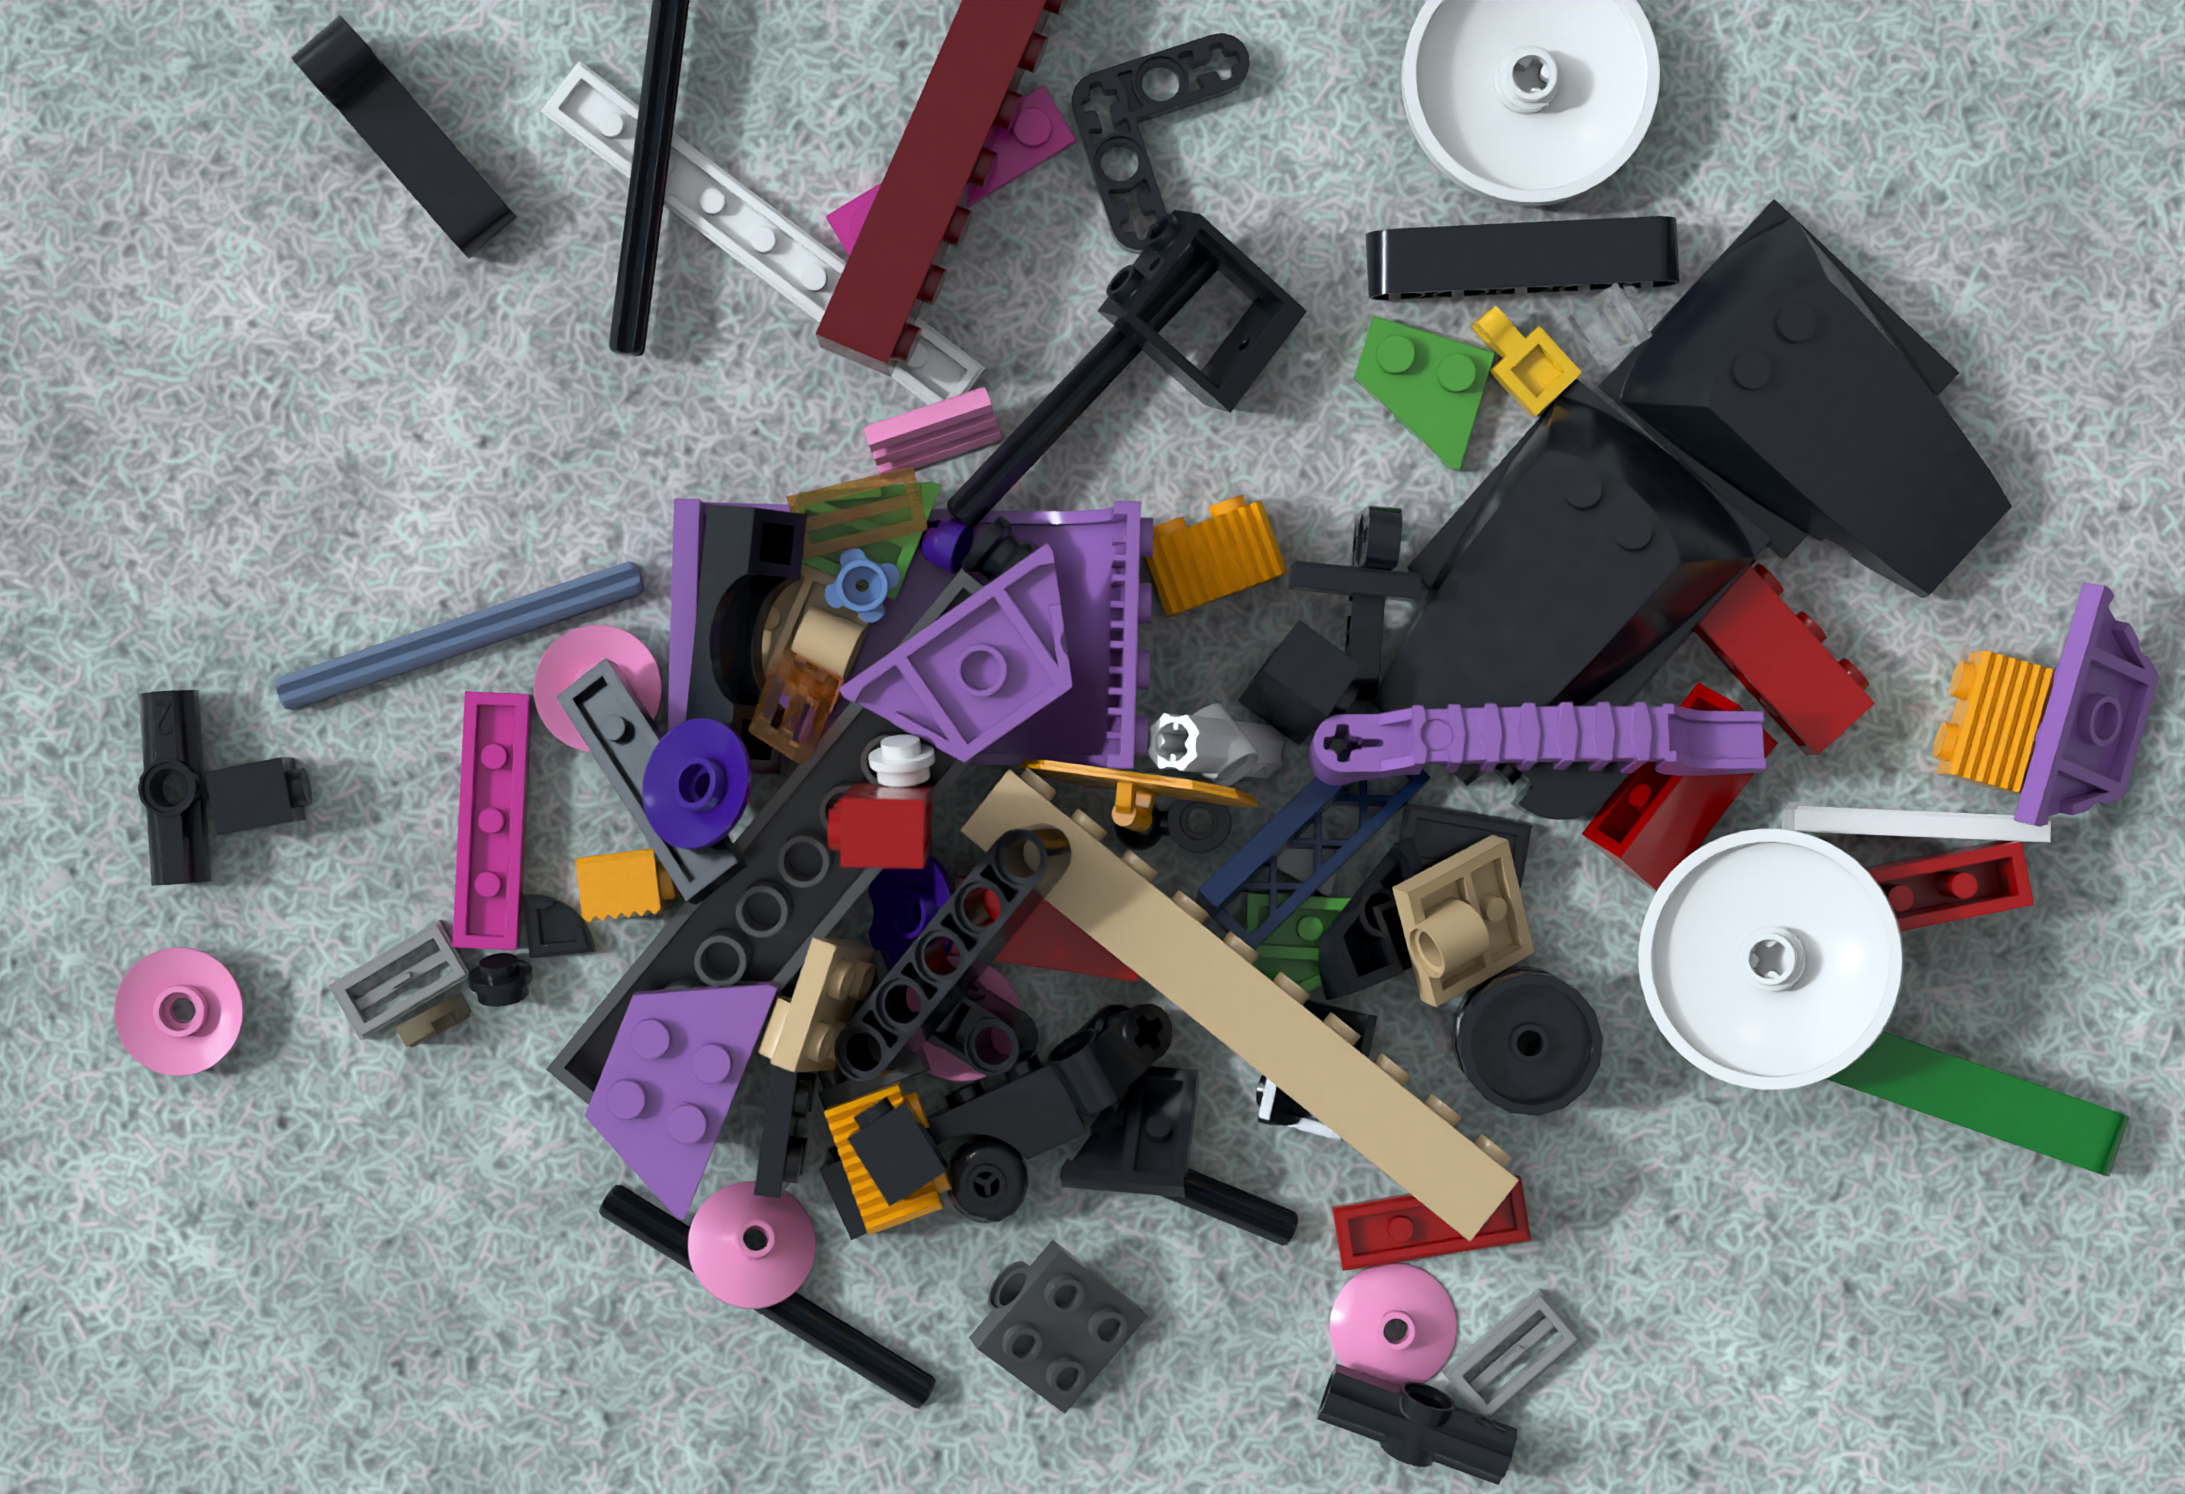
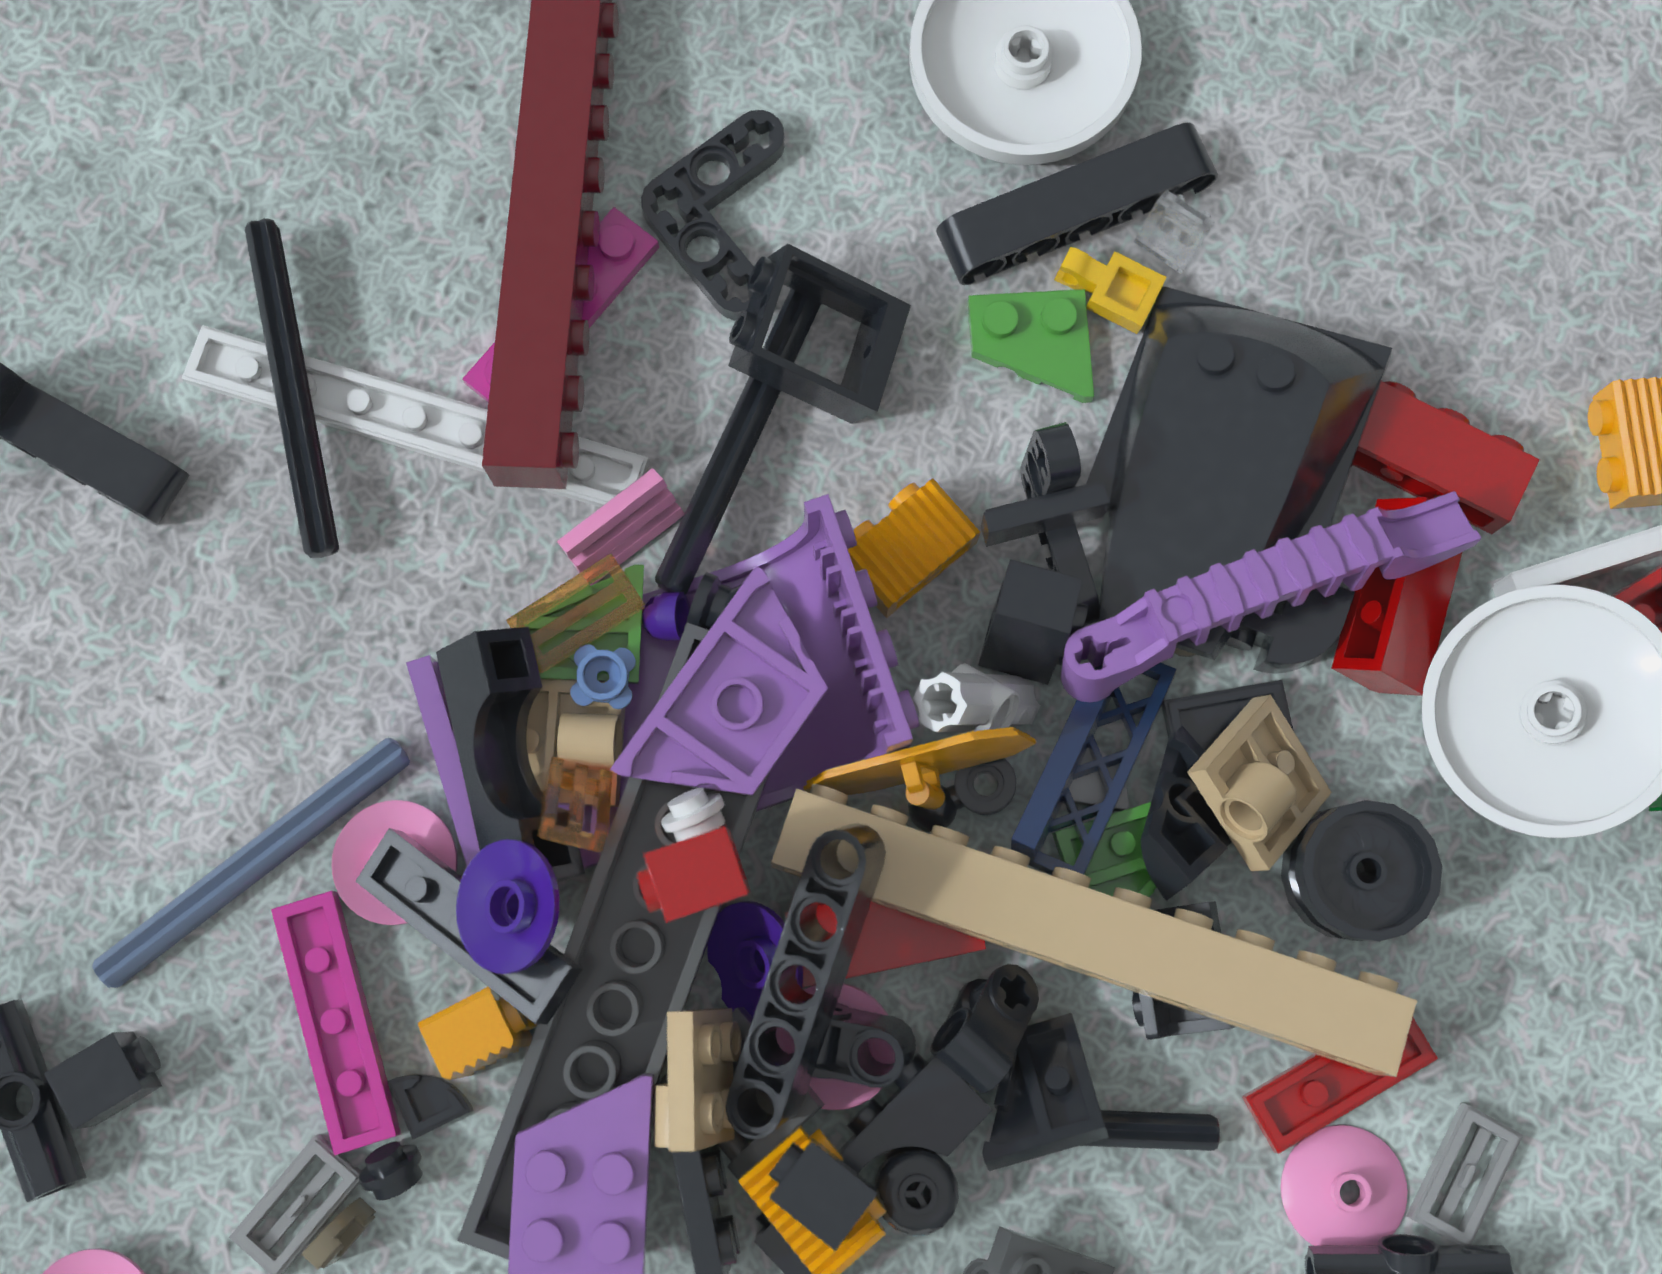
camera: 20 degrees left, 10 degrees down
(1812, 409) = (1377, 239): black wedge -> none

